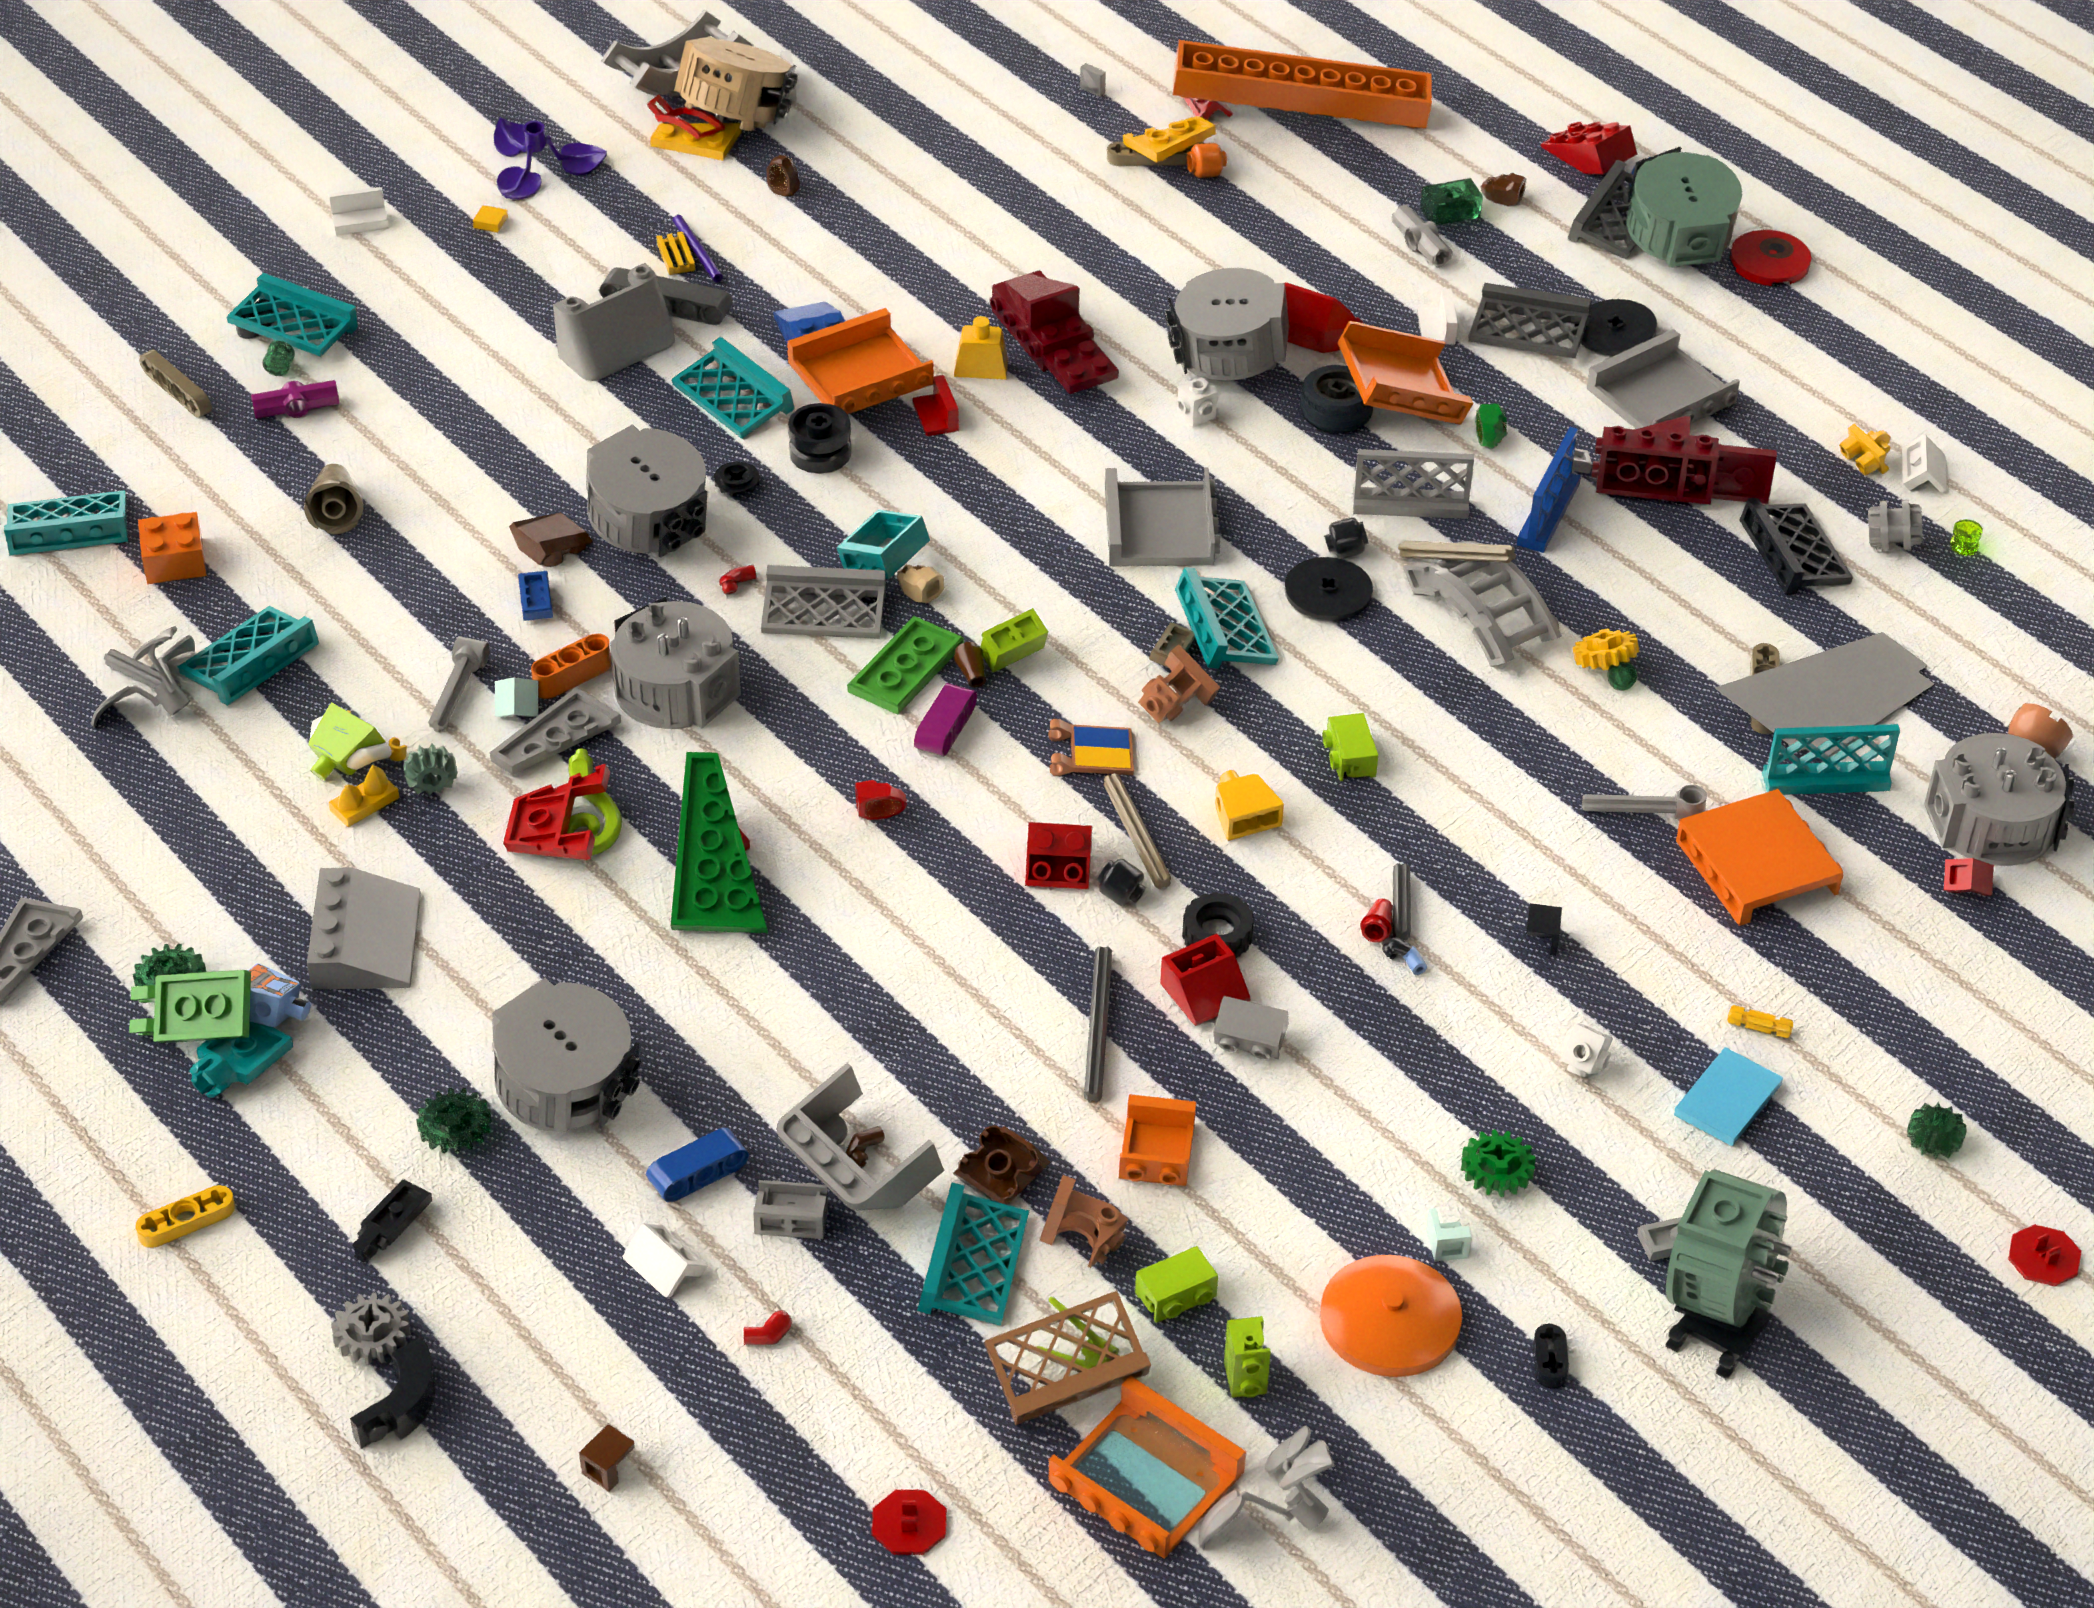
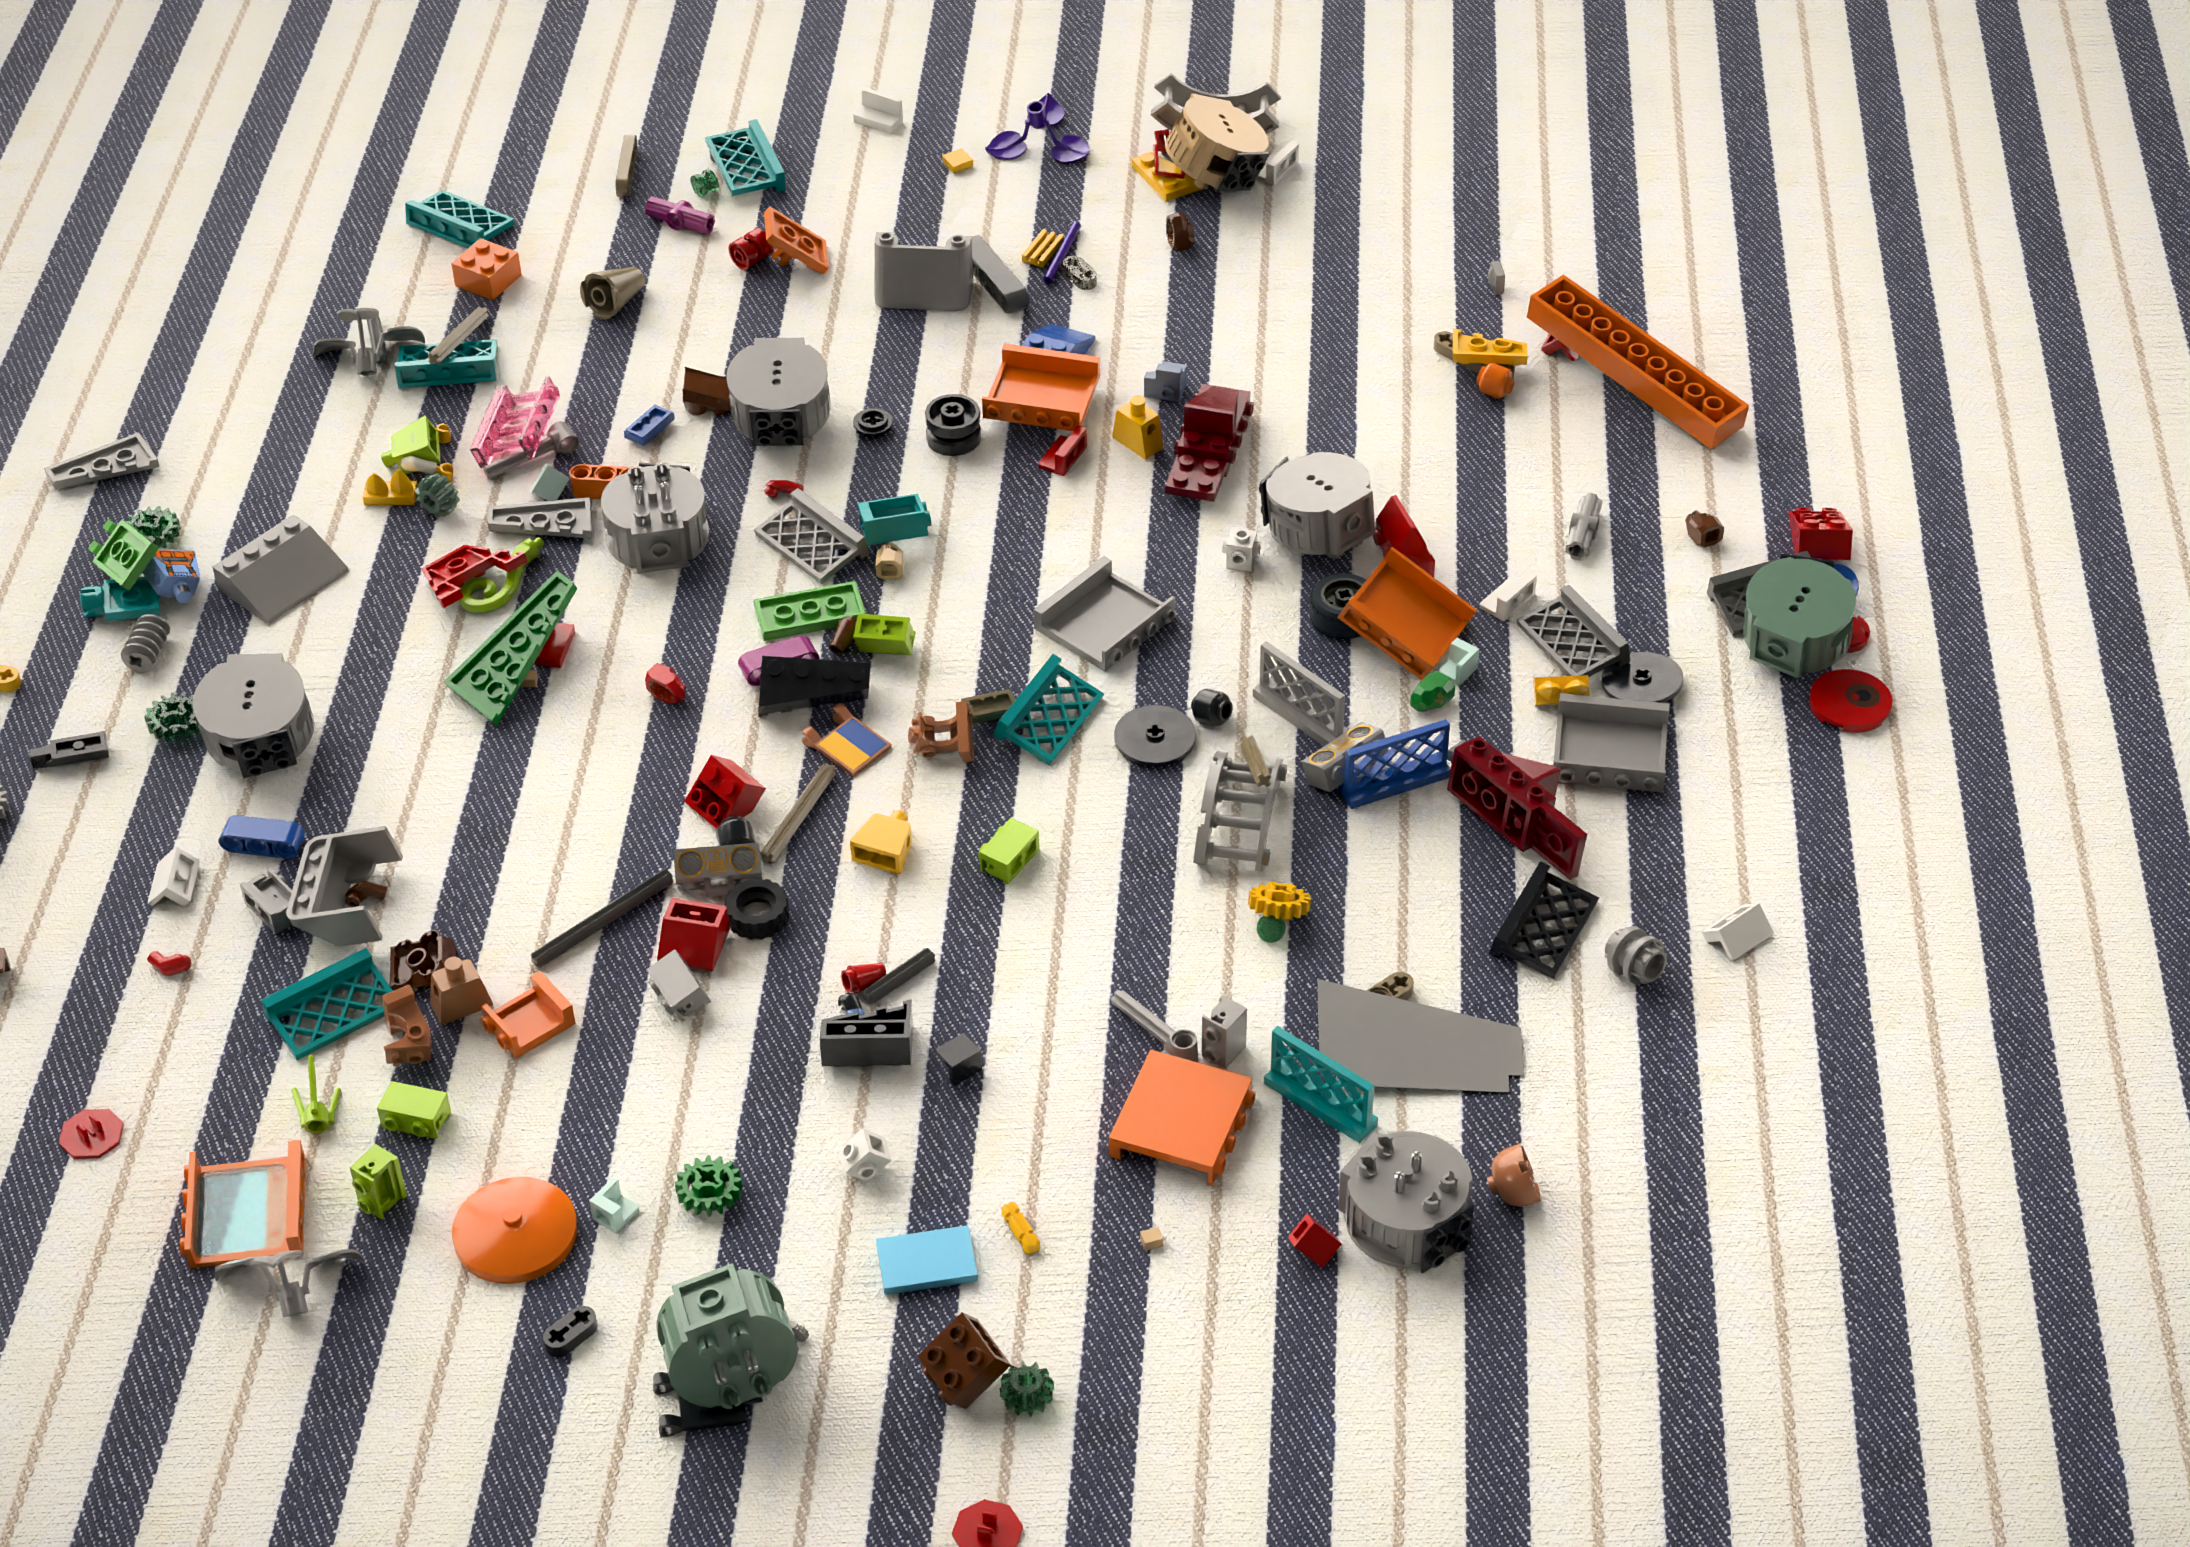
camera: 45 degrees right, 0 degrees up
(238, 620) = (458, 335): none -> dark tan axle
(326, 1077) = (145, 643): none -> light grey piece
(400, 685) = (502, 411): none -> clear pink fence
(413, 391) = (750, 249): none -> red wheel
(456, 363) = (794, 242): none -> orange plate
(738, 256) = (1079, 272): none -> clear smoke beam
(749, 377) = (968, 360): teal fence -> none
(948, 303) = (1166, 382): none -> sand blue brick
(1005, 719) = (804, 682): none -> black wedge
(1074, 1387) = (278, 1126): medium nougat fence -> none
(1079, 1150) = (457, 991): none -> medium nougat torso
(1152, 902) = (703, 864): none -> light grey piece
(1451, 201) = (1643, 513): clear green brick -> none
(1463, 958) = (869, 1038): none -> black wedge
(1476, 385) = (1462, 661): none -> light aqua panel
(1503, 509) = (1327, 765): none -> light grey piece
(1576, 367) = (1548, 689): none -> yellow tile
(1713, 767) = (1225, 1032): none -> light grey hinge
(1857, 961) = (1151, 1238): none -> tan piece
(1871, 446) = (1708, 888): yellow hips -> none
(1879, 1142) = (963, 1361): none -> reddish brown brick
(1966, 537) = (1690, 1002): clear neon green wheel -> none

